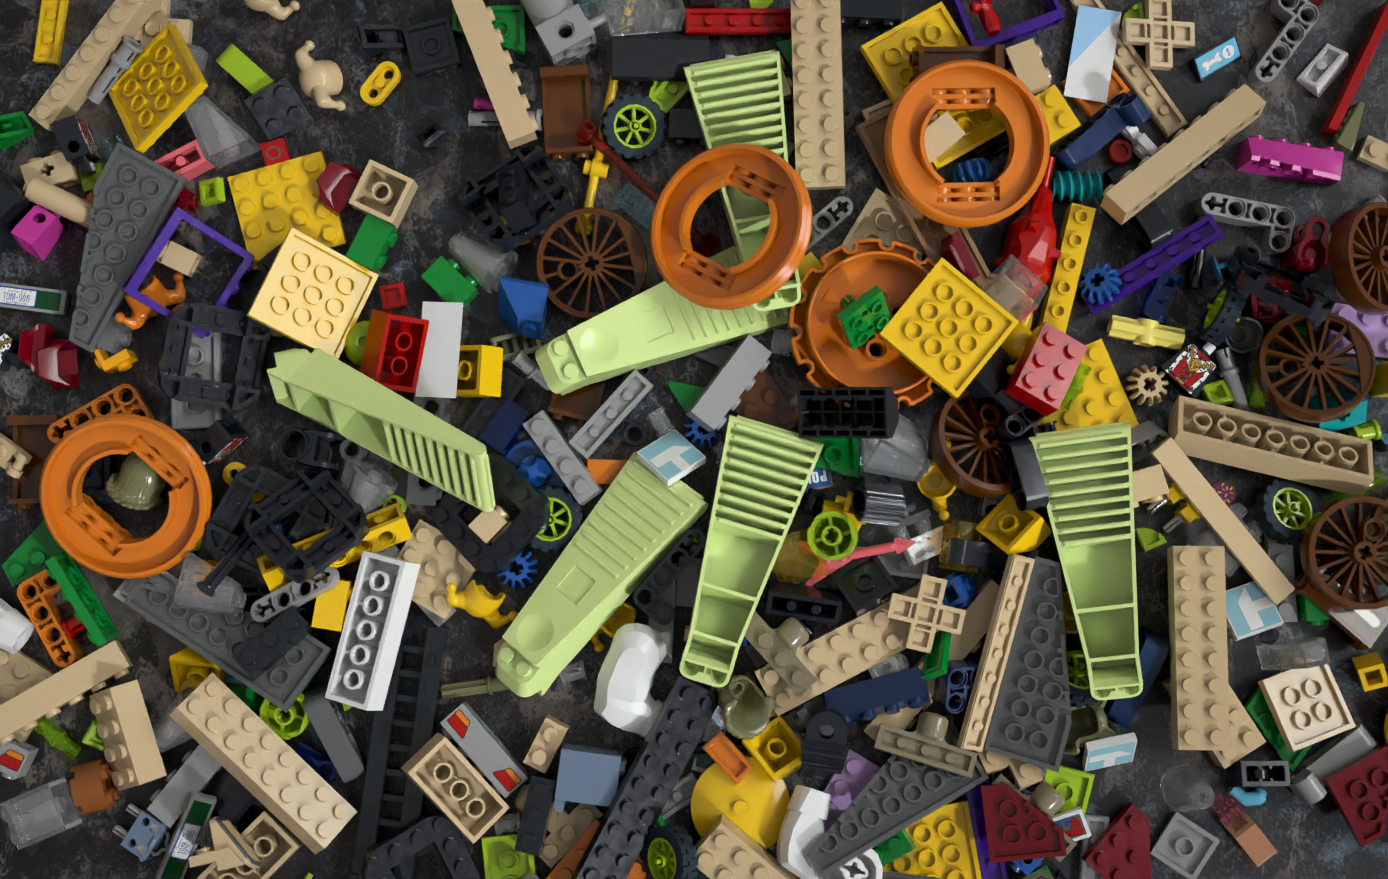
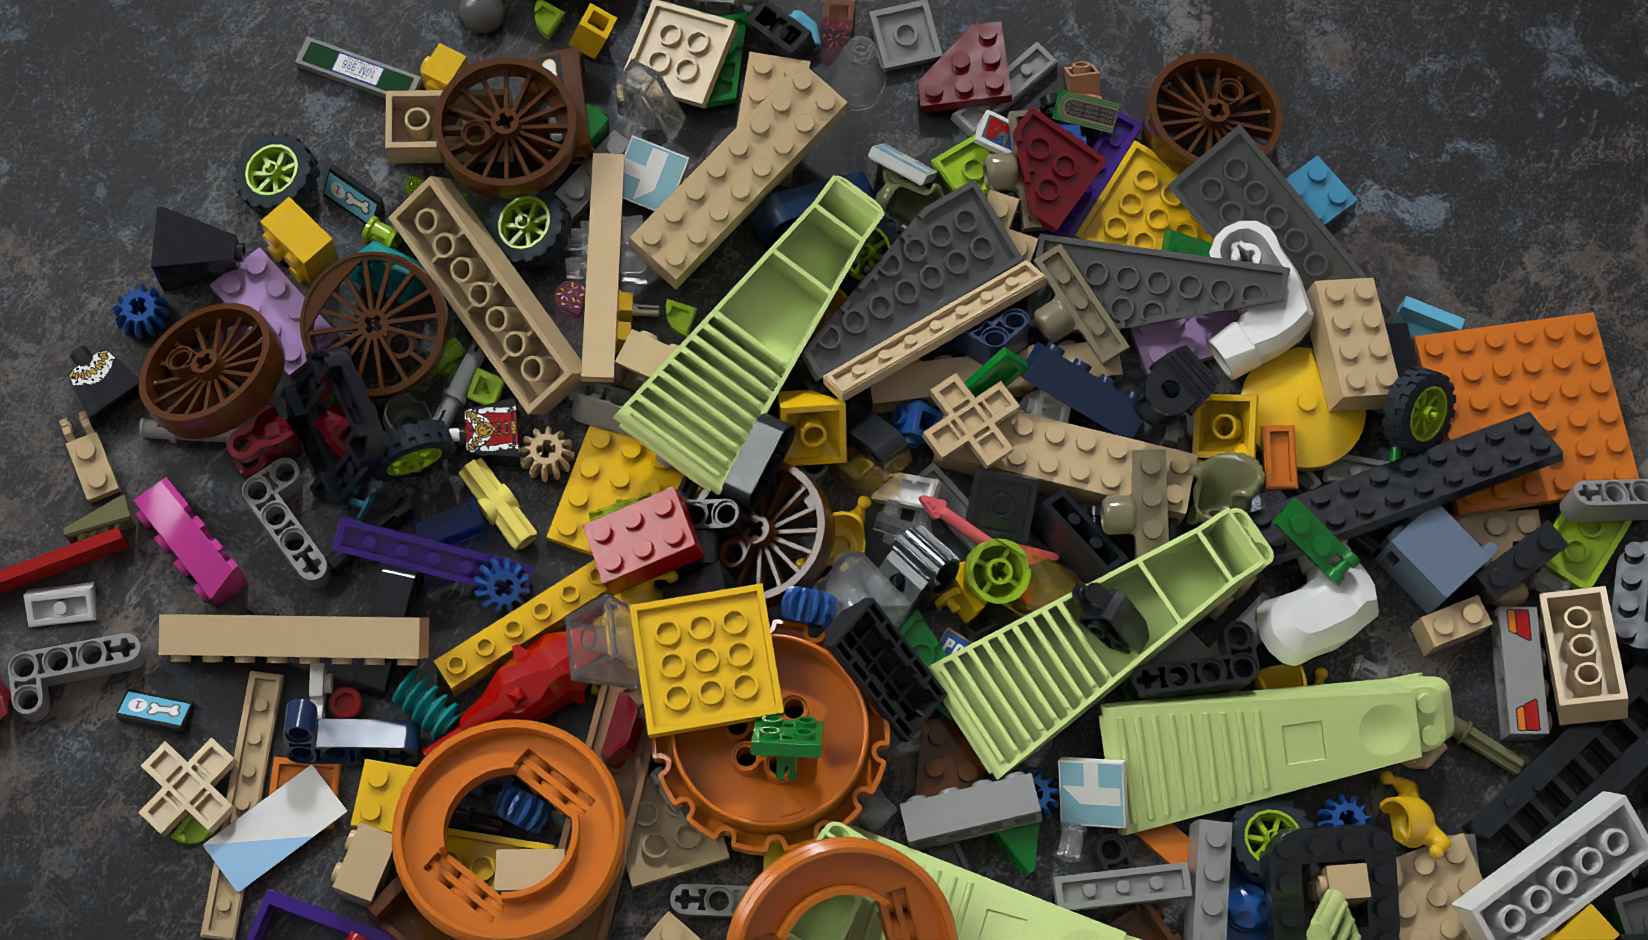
camera: 150 degrees left, 15 degrees down
(665, 711) = (1315, 541): none -> green plate
(744, 555) = (1111, 617): none -> black hinge
(919, 414) = (808, 606): none -> blue gear

